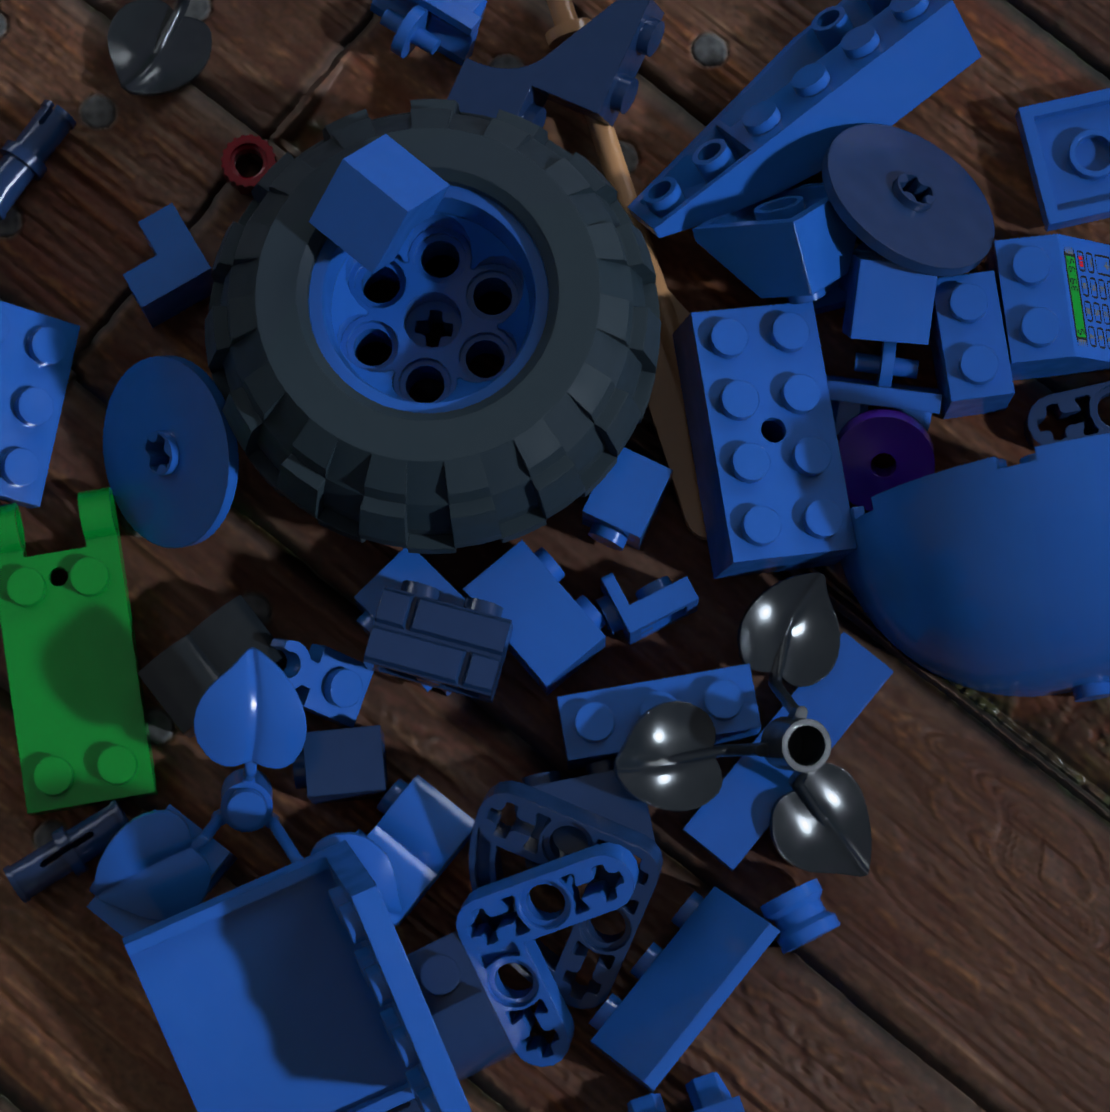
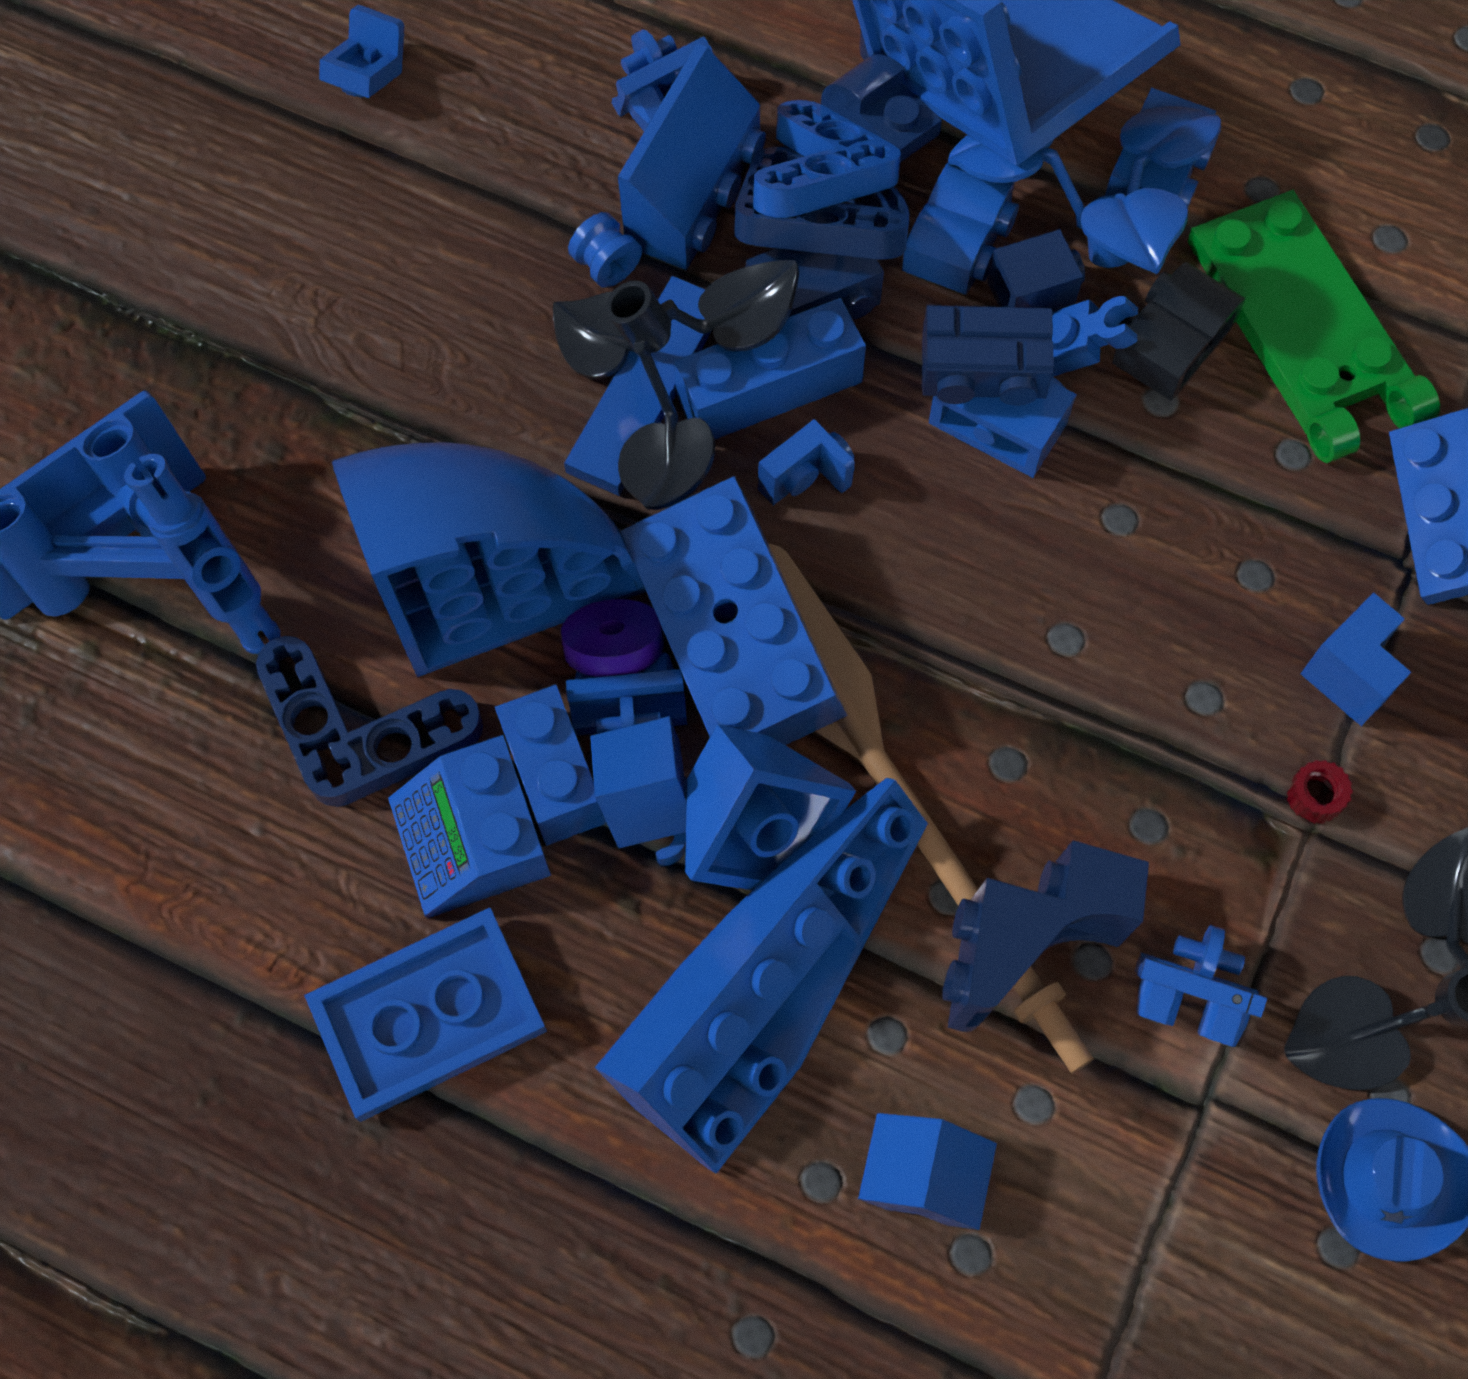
camera: 165 degrees right, 10 degrees down
(34, 874) = (1245, 170): dark blue pin -> none
(170, 451) = (1292, 475): blue piece -> none
(377, 202) = (1190, 615): blue piece -> none
(491, 449) = (1131, 492): black wheel -> none
(550, 628) = (905, 433): blue brick -> none
(626, 501) = (849, 552): blue brick -> none
(908, 200) = (642, 822): dark blue piece -> none

